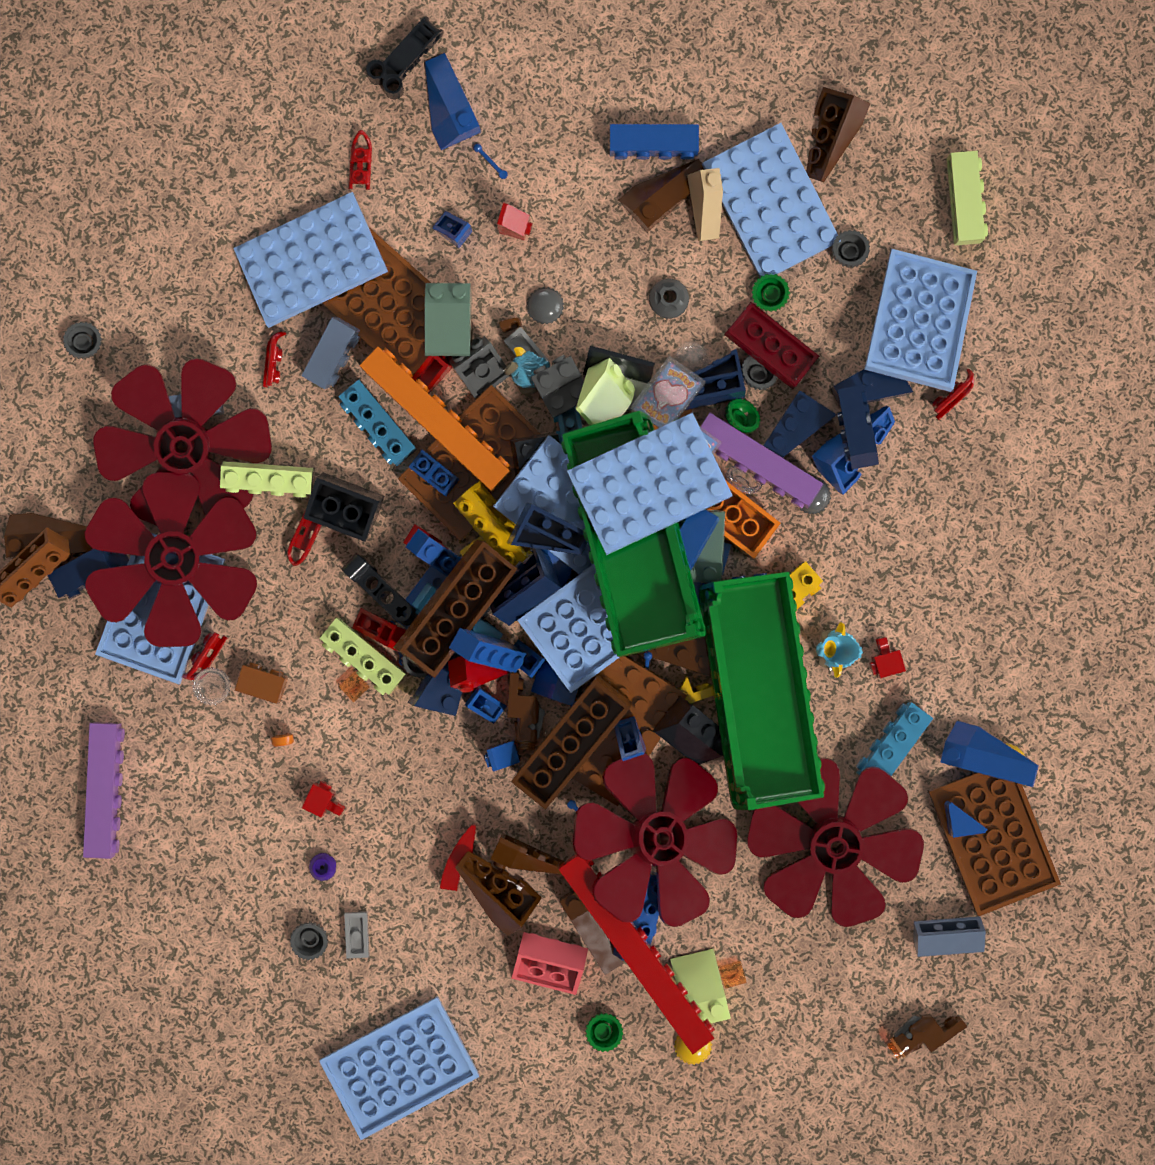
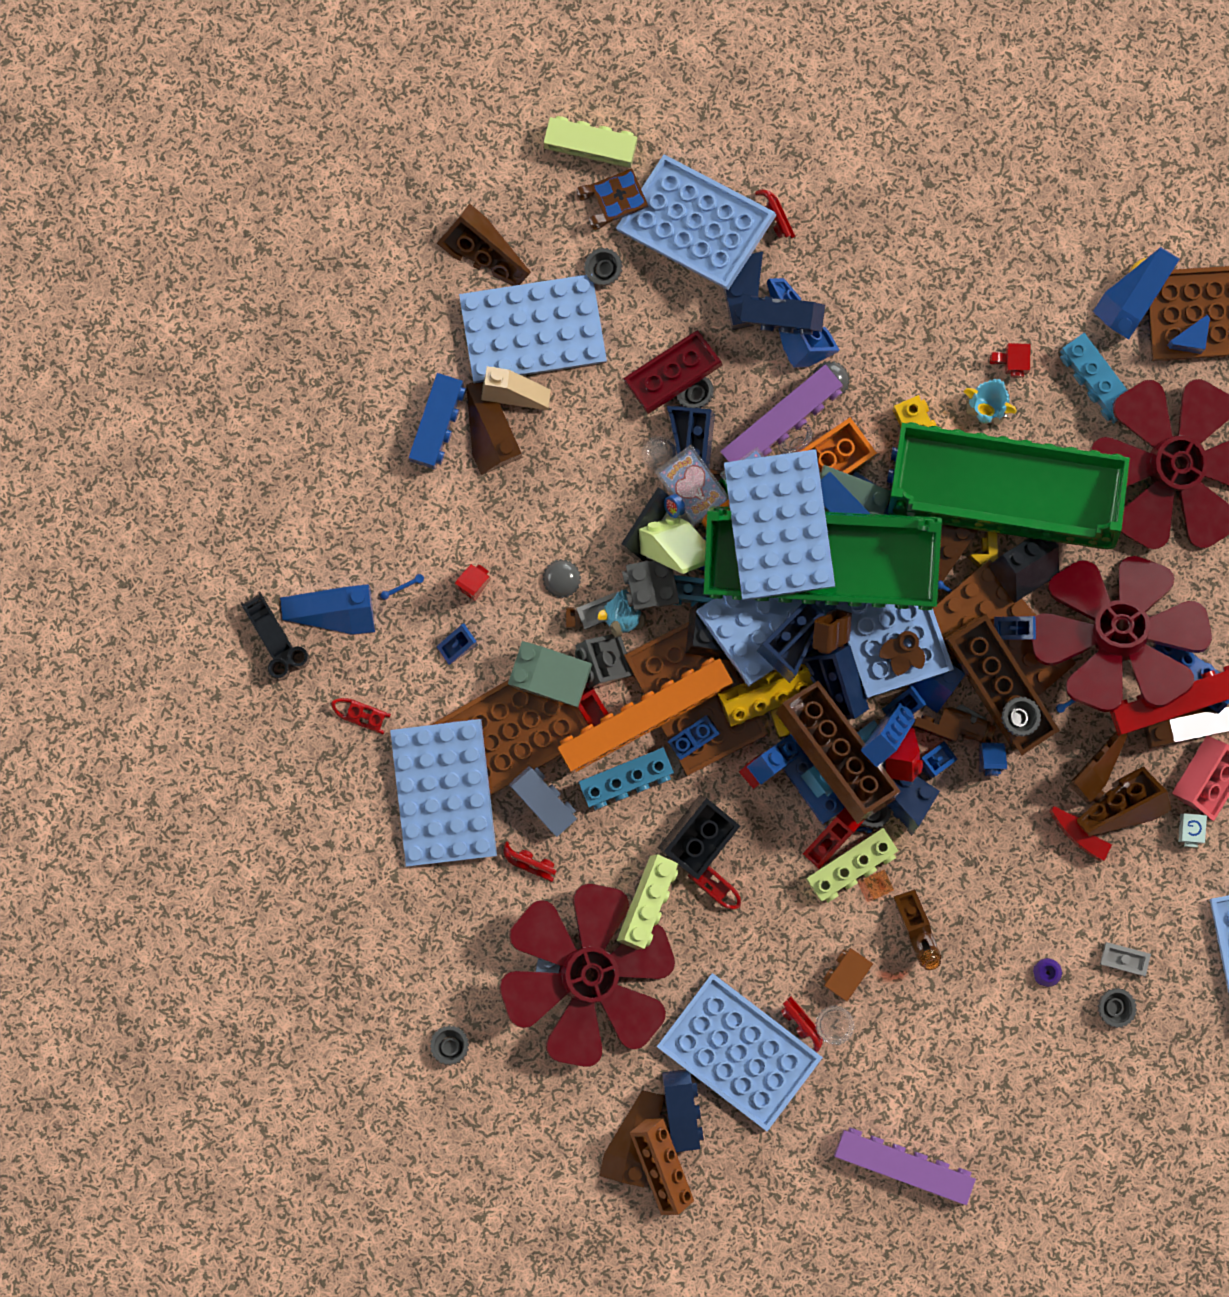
camera: 75 degrees left, 5 degrees down
(121, 588) = (713, 1078): dark red piece -> none
(282, 740) = (910, 971): orange tile -> none
(320, 800) = (981, 952): red brick -> none
(321, 735) = (918, 929): none -> reddish brown plate
(364, 574) = (772, 837): black piece -> none
(495, 961) = (1192, 829): none -> light aqua brick
(544, 769) = (1021, 716): none -> dark grey hat
(566, 641) = (902, 656): none -> reddish brown plate
(567, 566) = (832, 630): none -> reddish brown brick
(642, 384) = (674, 506): none -> blue tile
(666, 309) = (597, 467): dark grey piece -> none
(737, 419) = (735, 426): green hat -> none
(775, 292) = (623, 351): green hat -> none
(797, 423) = (758, 372): dark blue wedge -> none
(920, 240) = (616, 196): none -> reddish brown flag

